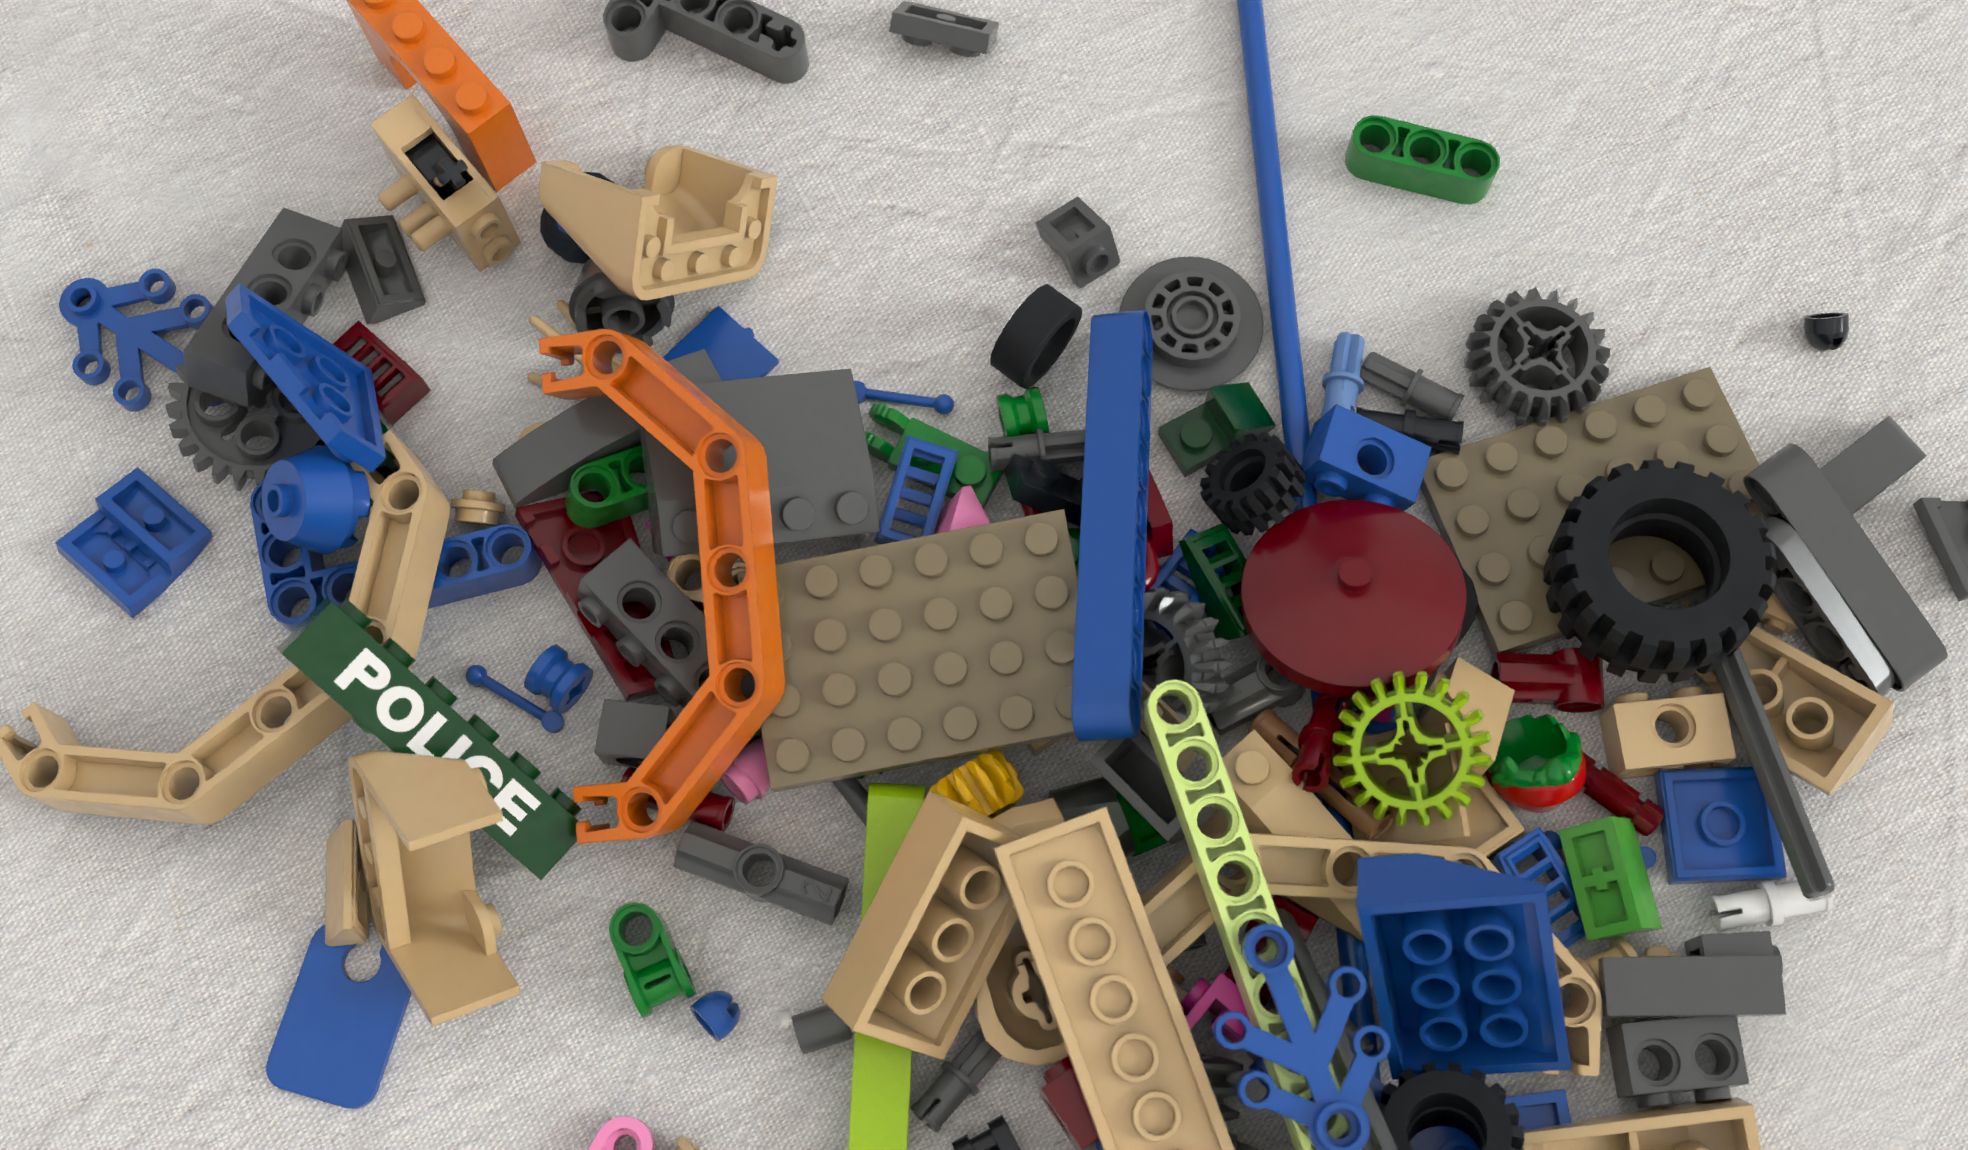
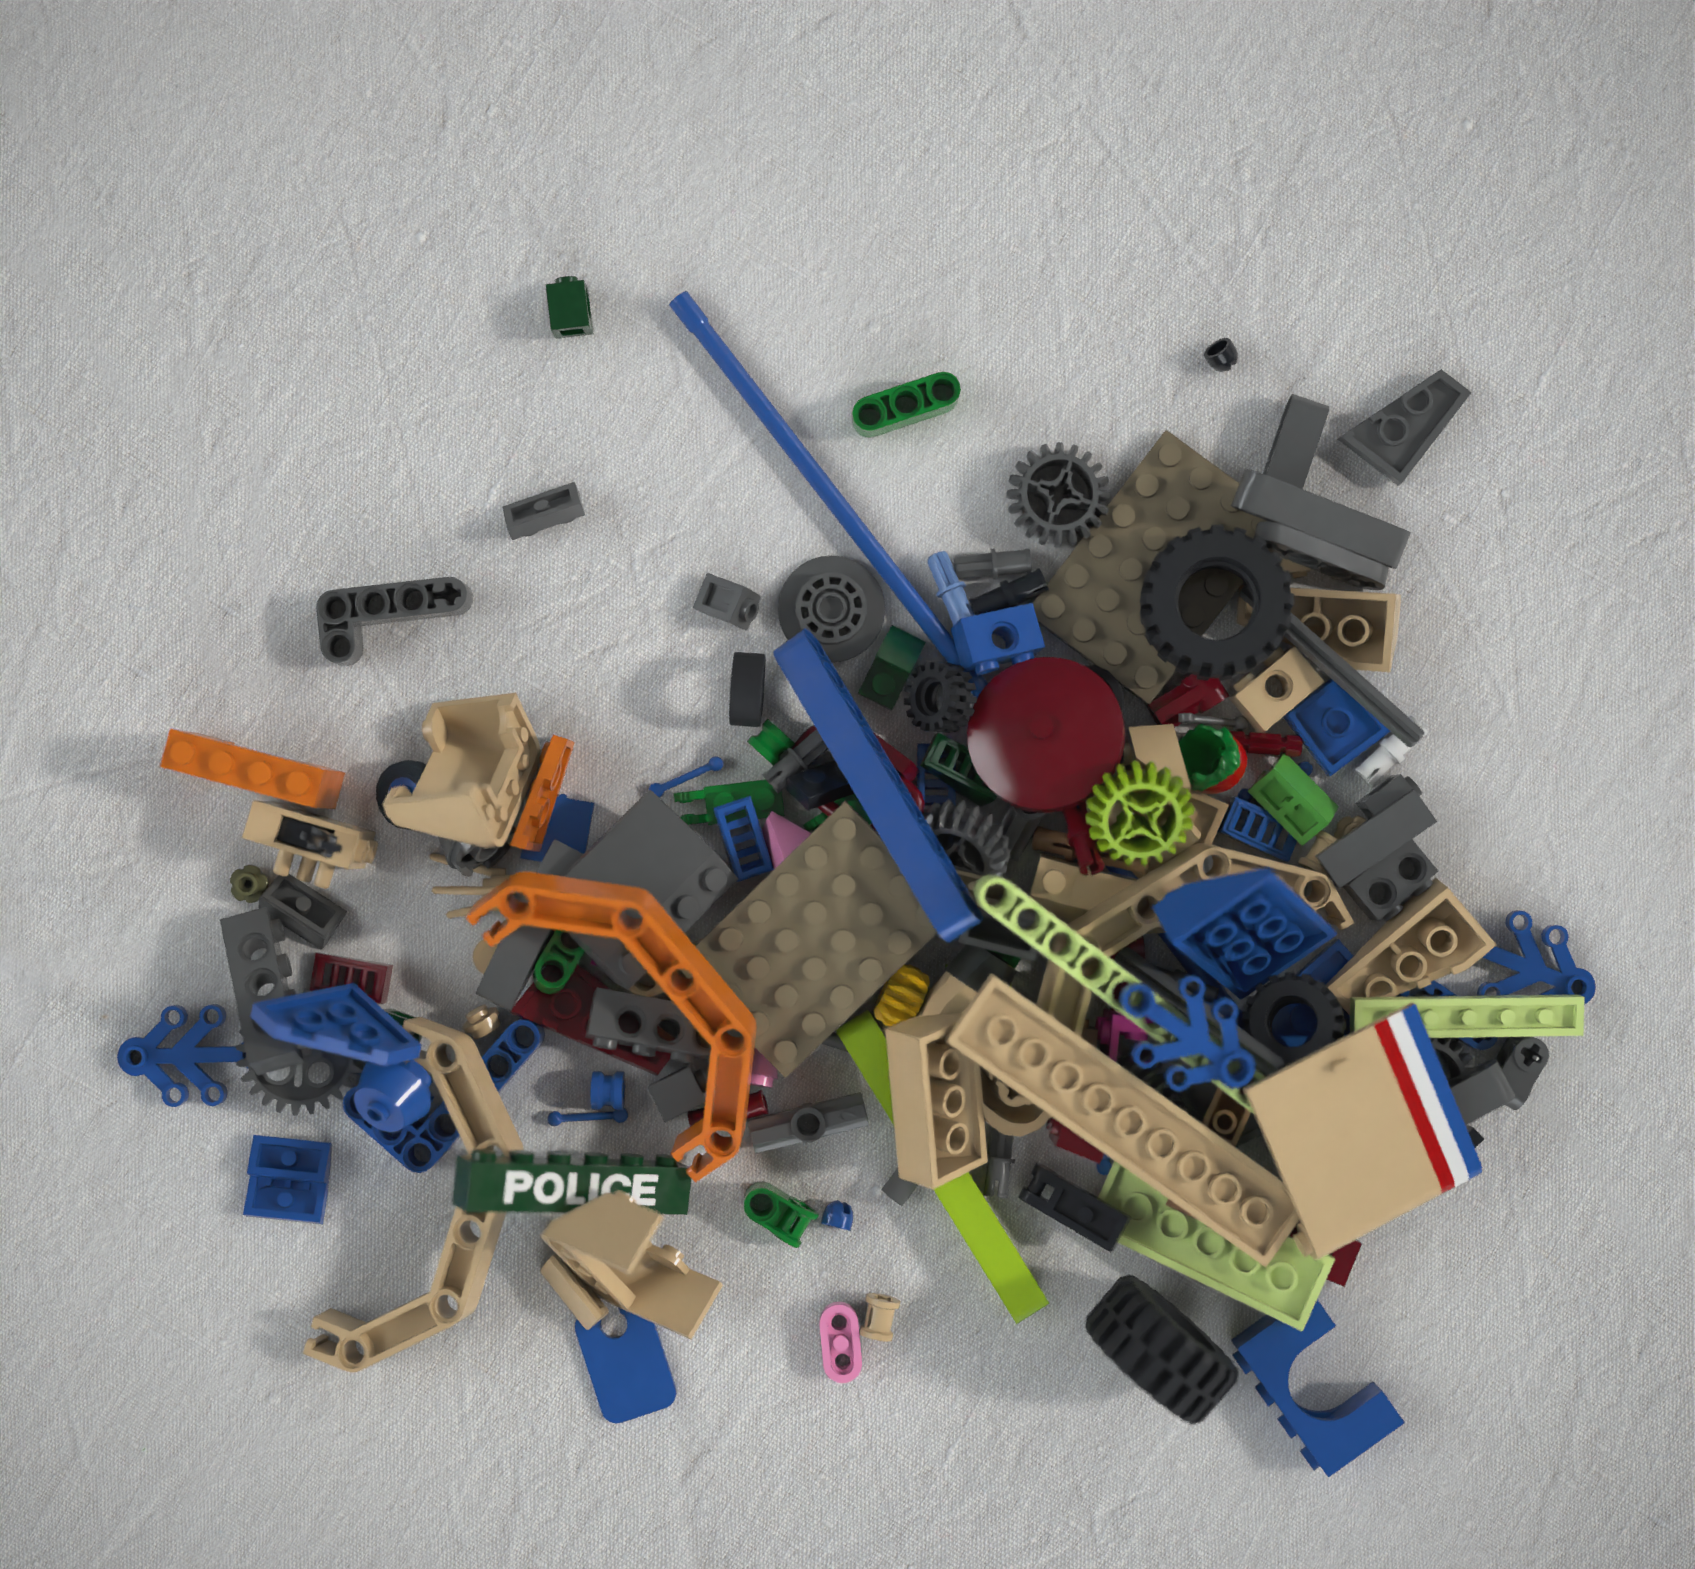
camera: 35 degrees left, 15 degrees up
(337, 192) = (257, 878): none -> olive plate
(727, 305) = (543, 794): none -> orange wing
(1538, 694) = (1239, 723): none -> dark grey hinge

